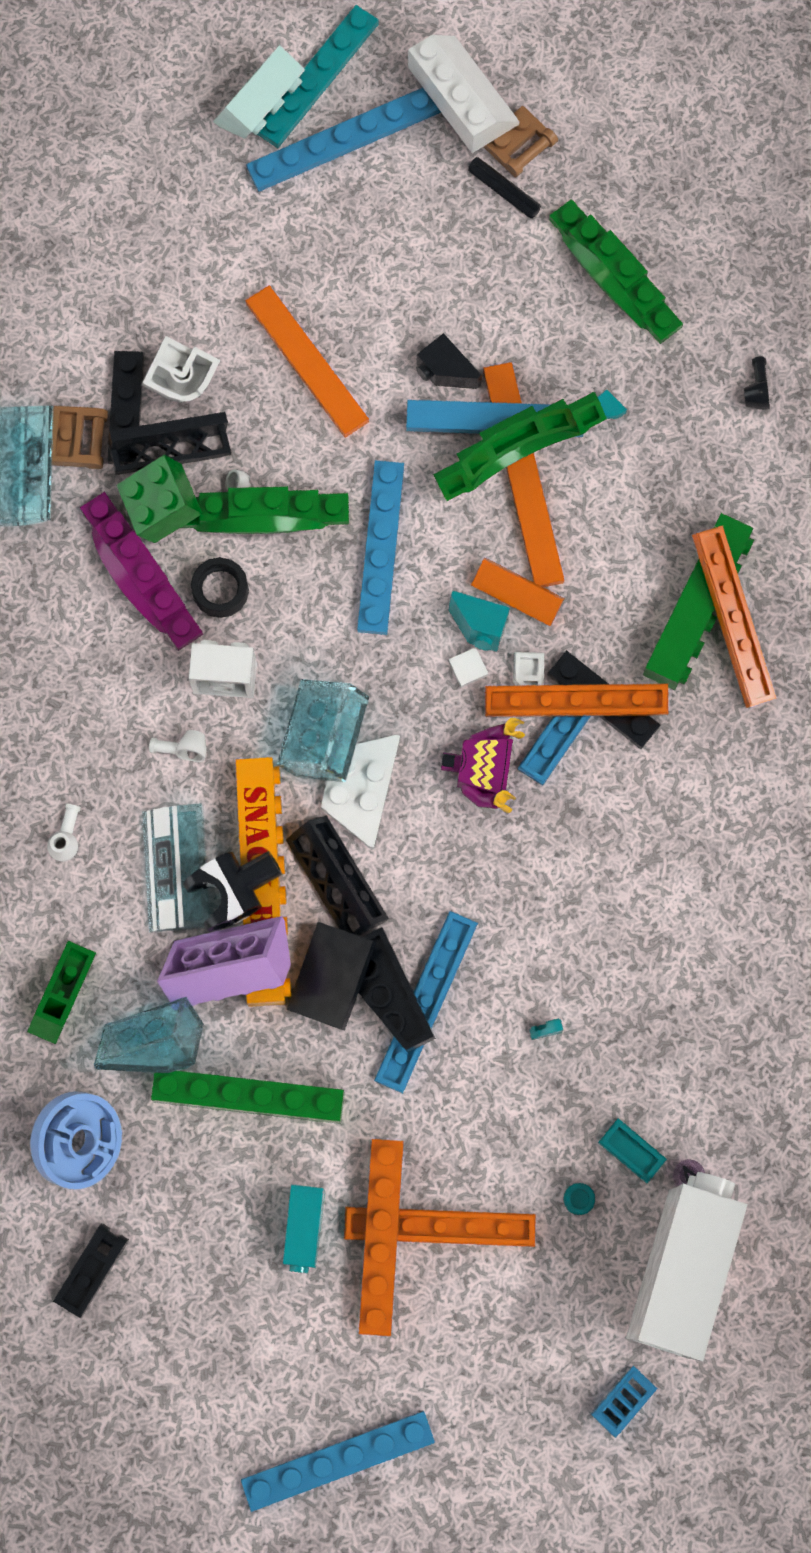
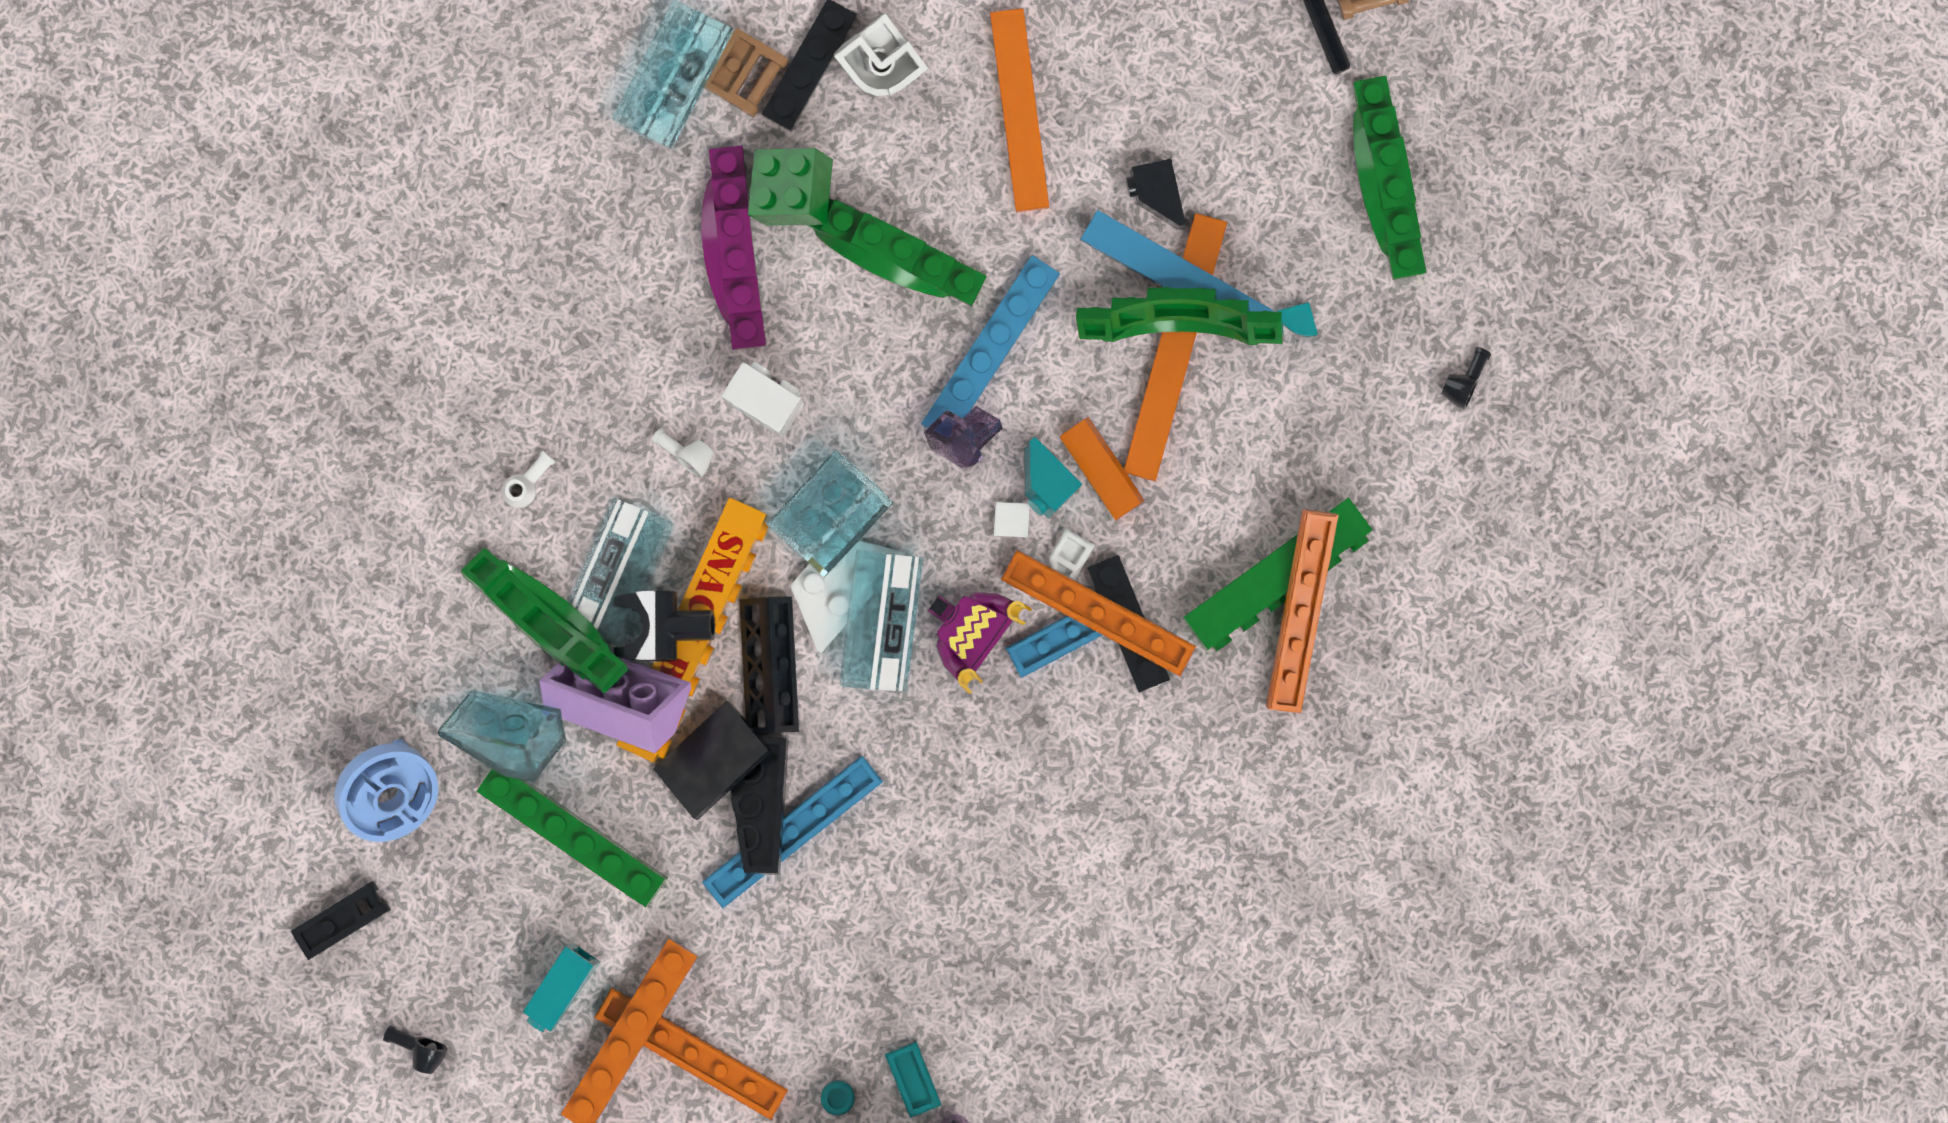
camera: 30 degrees right, 10 degrees up
(61, 992) = (445, 638): green slope -> none
(137, 932) = (546, 619): none -> green piece
(166, 433) = (833, 118): black fence -> none
(220, 1348) = (423, 1058): none -> black bar
(224, 609) = (794, 285): black tyre -> none
(237, 476) = (875, 202): white hinge -> none
(395, 620) = (960, 438): none -> clear purple brick
(407, 795) = (881, 621): none -> clear light blue slope
(550, 1028) = (892, 920): teal tile -> none

